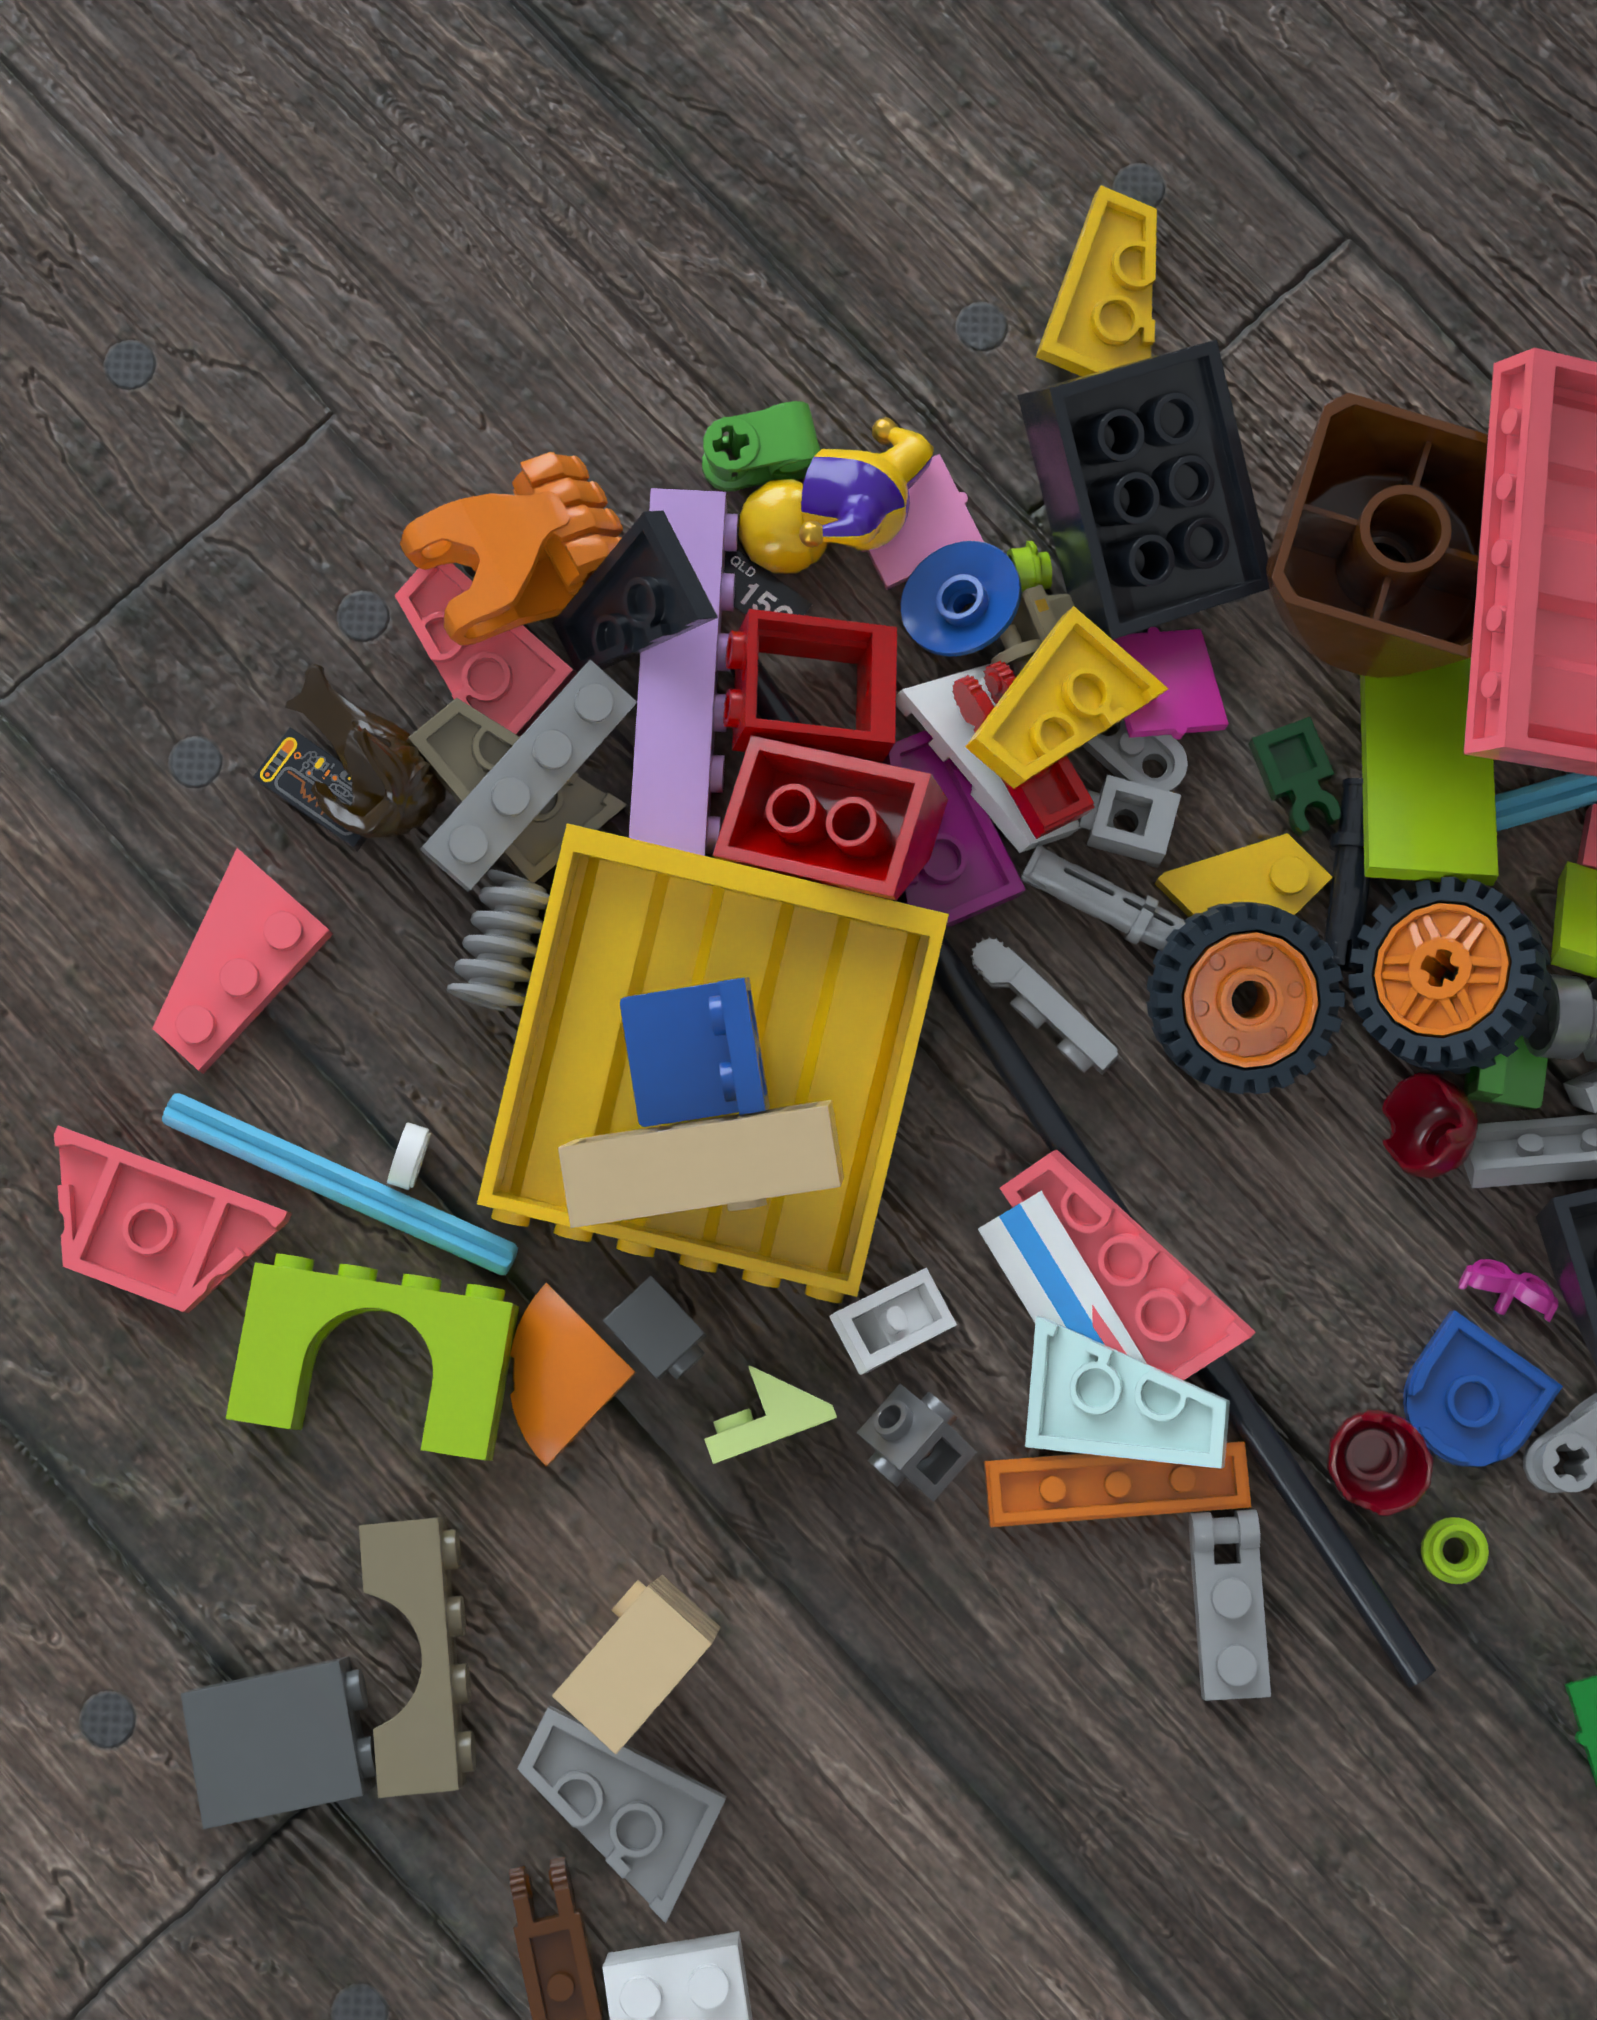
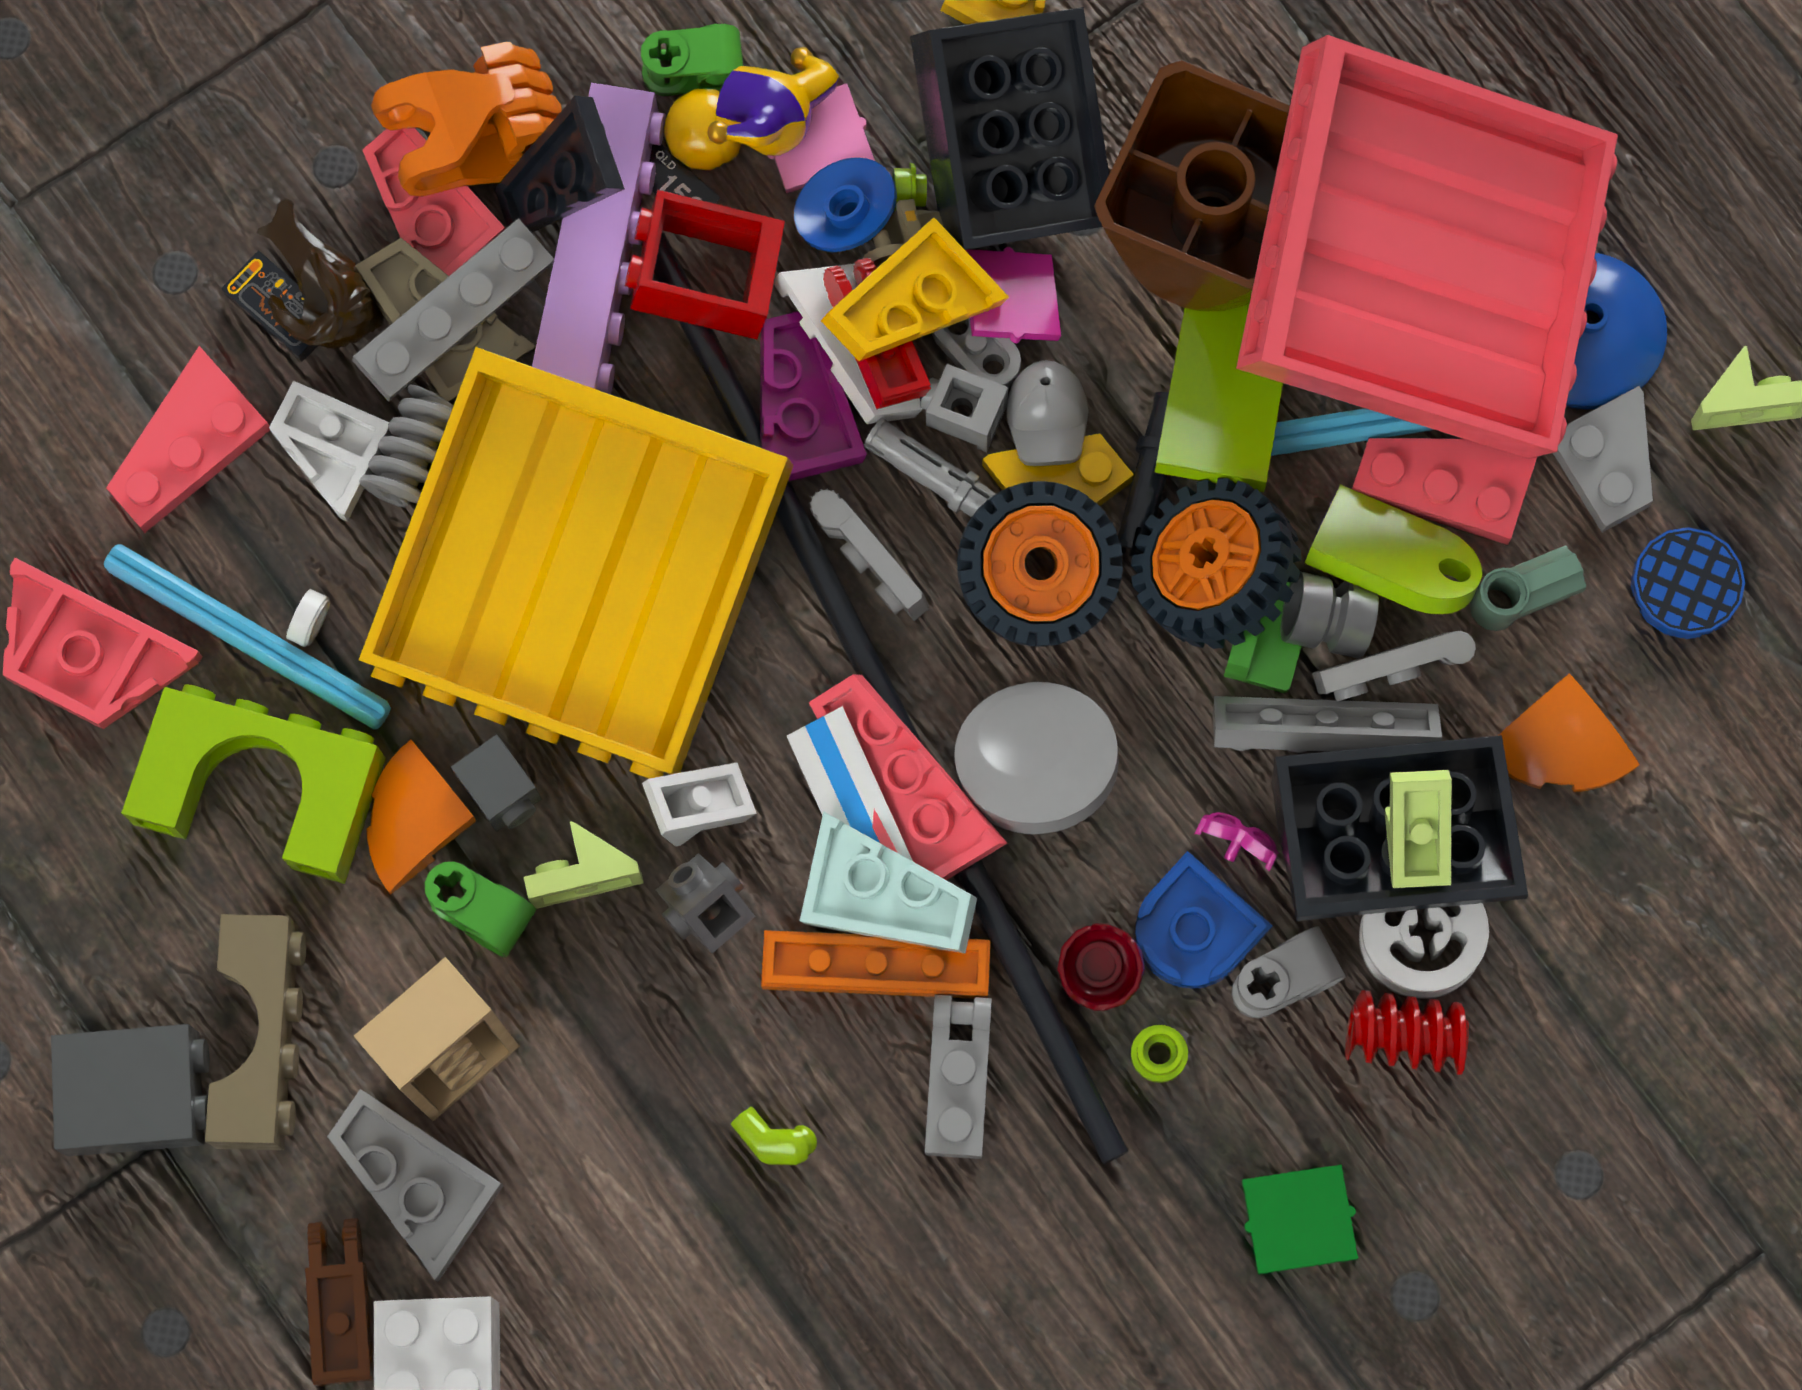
camera: 10 degrees right, 5 degrees down
(404, 946) = (329, 443): none -> white wing
(666, 1480) = (485, 912): none -> bright green piece
(694, 1052) = (558, 548): blue bracket -> none
(702, 1164) = (550, 638): tan brick -> none
(831, 818) = (703, 368): red slope -> none
(1032, 1712) = (774, 1145): none -> lime arm
(1225, 826) = (1049, 419): none -> light grey cap
(1271, 1224) = (1037, 757): none -> light grey piece
(1294, 765) = (1114, 378): dark green plate -> none
(1429, 1125) = (1187, 689): dark red hair -> none

